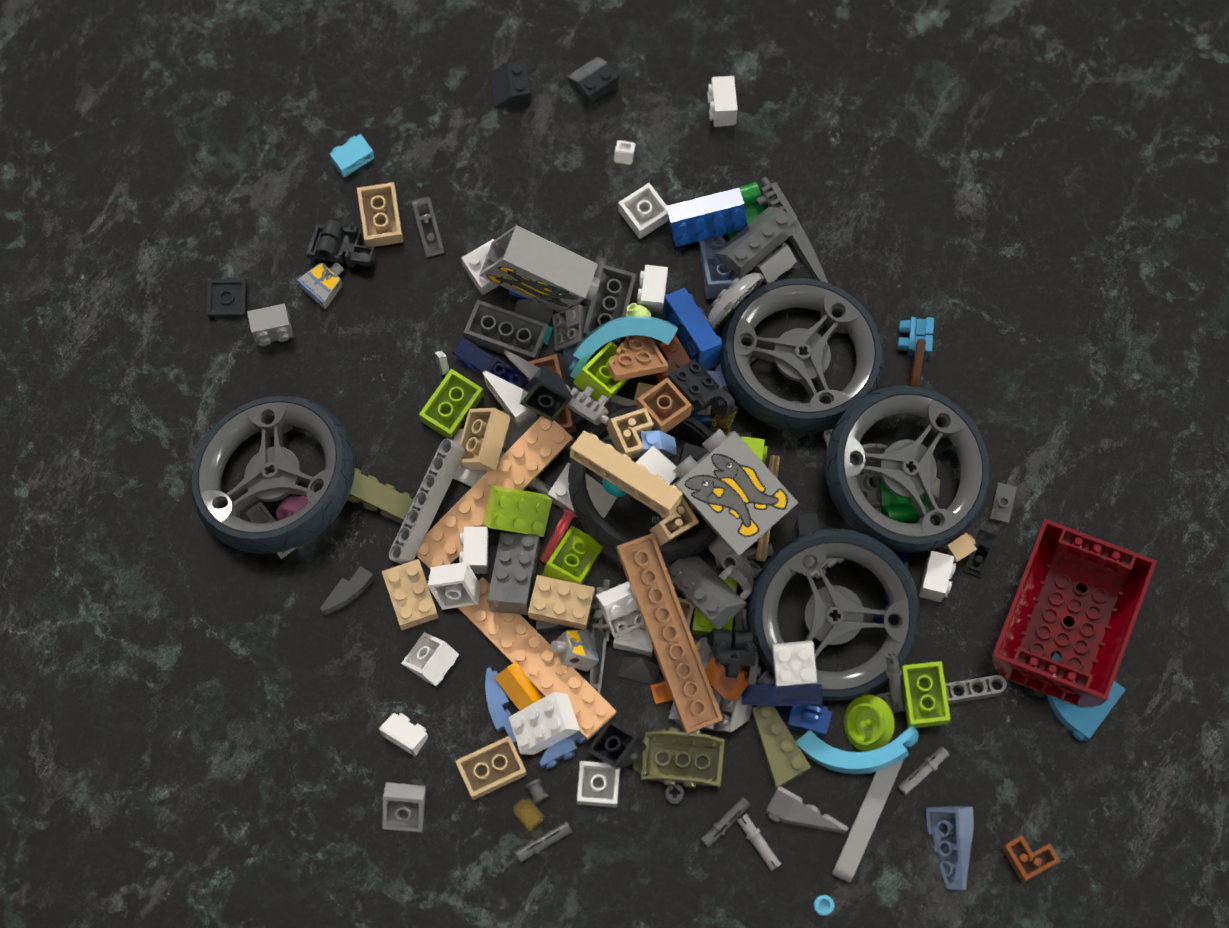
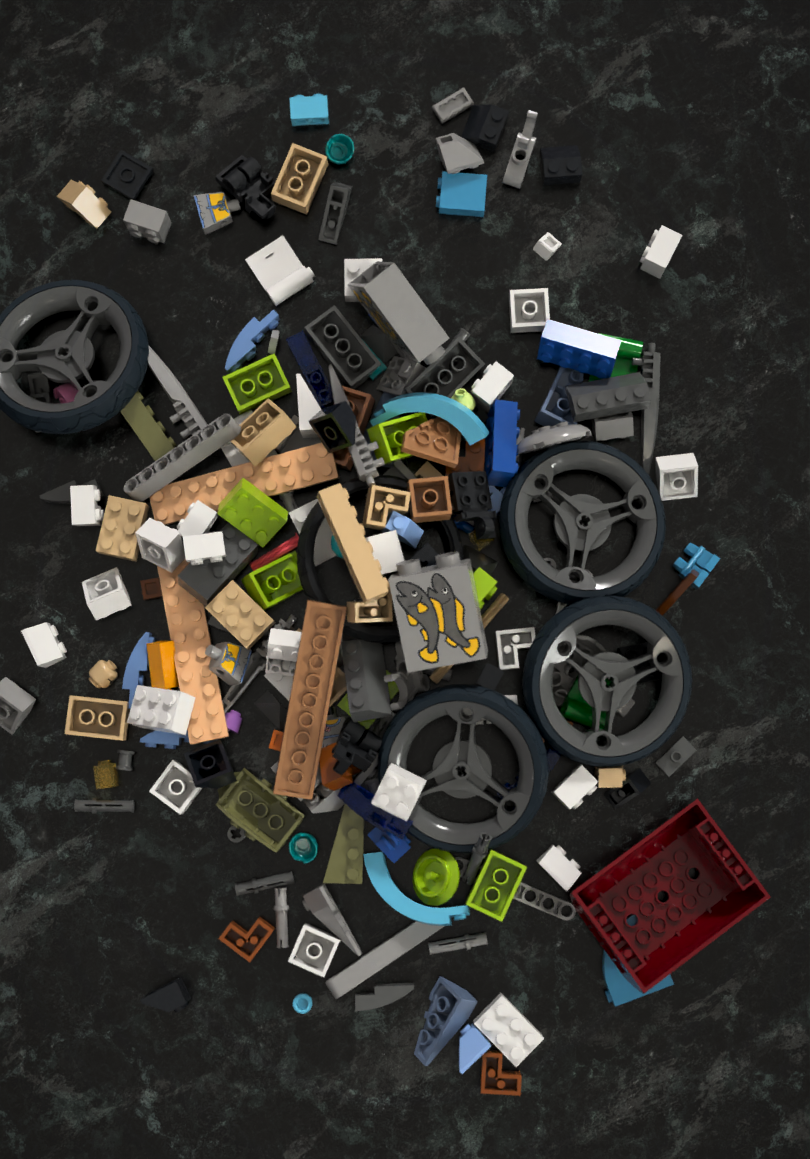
camera: 35 degrees right, 10 degrees up
(205, 340) = (84, 202): none -> tan brick
(367, 592) = (85, 506): none -> white brick
(392, 458) = (181, 401): none -> light grey piece
(398, 171) = (339, 149): none -> teal hair
(411, 303) = (279, 270): none -> white door
(420, 379) = (244, 346): none -> medium blue slope
(467, 631) = (151, 588): none -> reddish brown plate
(471, 83) = (452, 105): none -> light grey plate
(471, 728) = (103, 674): none -> tan head
(497, 559) = (204, 547): none -> white brick
(501, 119) = (457, 153): none -> light grey slope
(526, 149) = (462, 194): none -> dark azure brick
(553, 81) = (523, 146): none -> light grey piece
(612, 698) = (233, 721): none -> medium lavender hat
(740, 769) = (303, 847): none -> teal hair
(743, 881) = (247, 943): none -> dark orange brick
(805, 850) = (314, 949): none -> white brick
(806, 489) = (509, 642): none -> white brick
(854, 273) = (677, 476): none -> white slope
(887, 854) = (383, 995): none -> dark grey slope
(966, 652) = (559, 867): none -> white slope
(991, 848) = (471, 1046): none -> light blue slope
(1013, 815) = (508, 1029): none -> white brick

